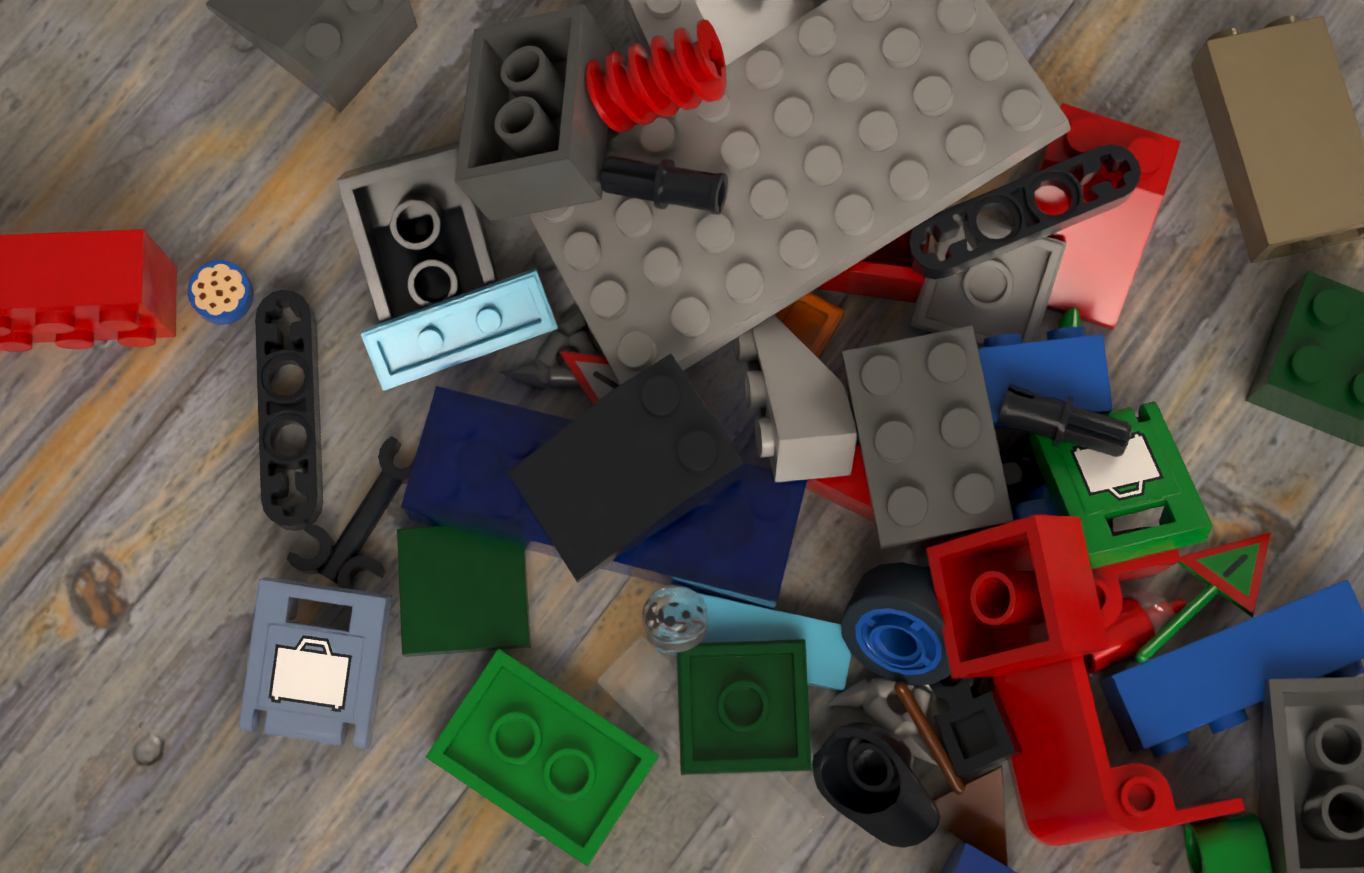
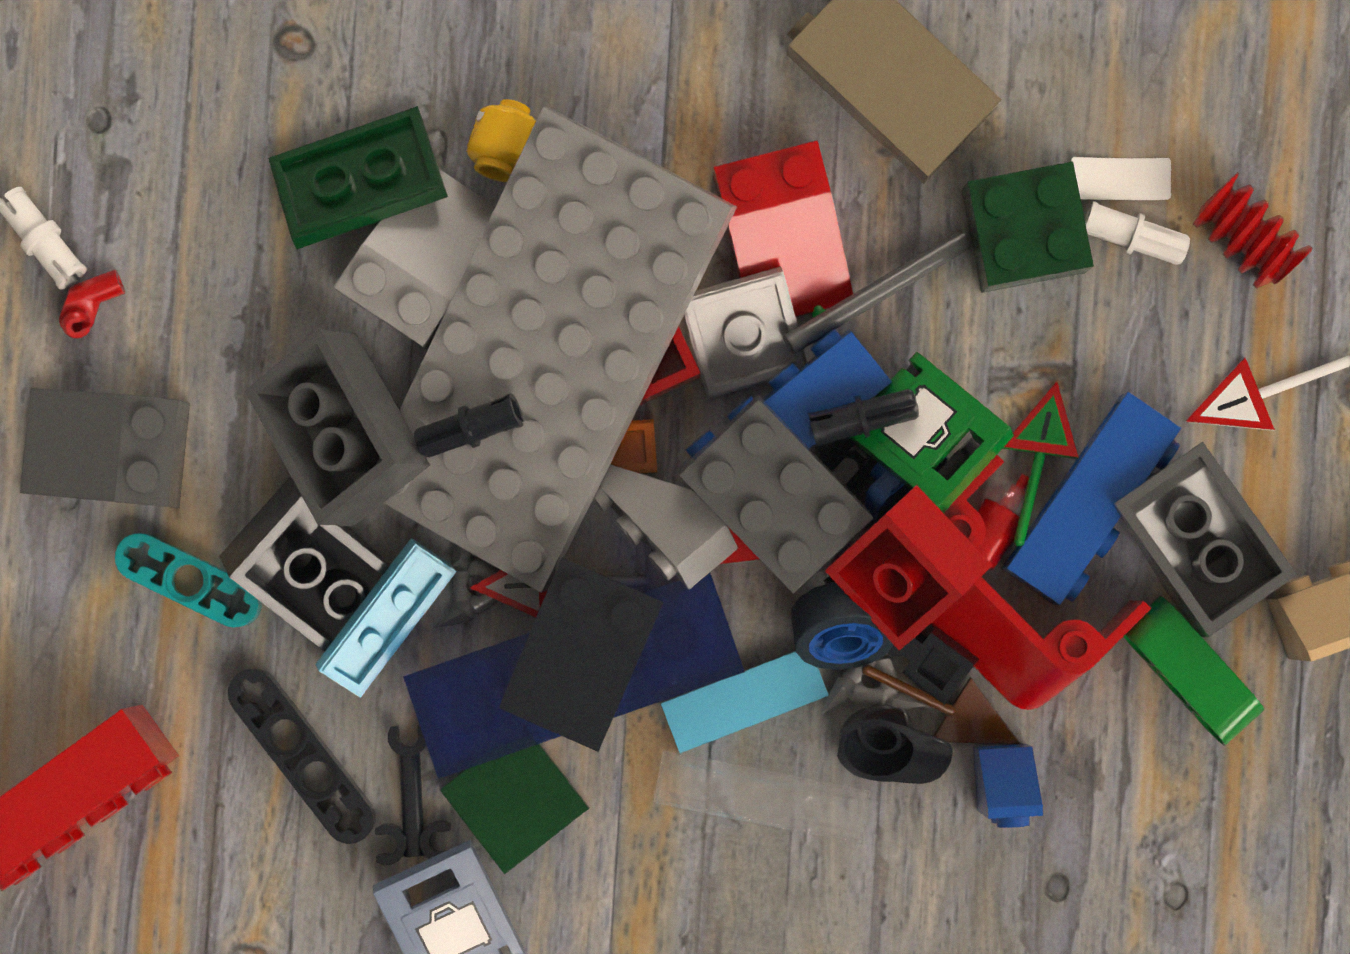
camera: 30 degrees left, 10 degrees up
(220, 292) = (190, 703): tile -> none
(277, 172) = (146, 577): none -> teal beam
(542, 757) = (651, 879): green plate -> none
(658, 82) = (412, 350): red piece -> none
(675, 619) = (680, 726): clear tile -> none
(743, 708) = (767, 755): dark green tile -> none
(1019, 205) = (732, 273): black beam -> none
(1147, 327) = (876, 292): none -> dark grey piece

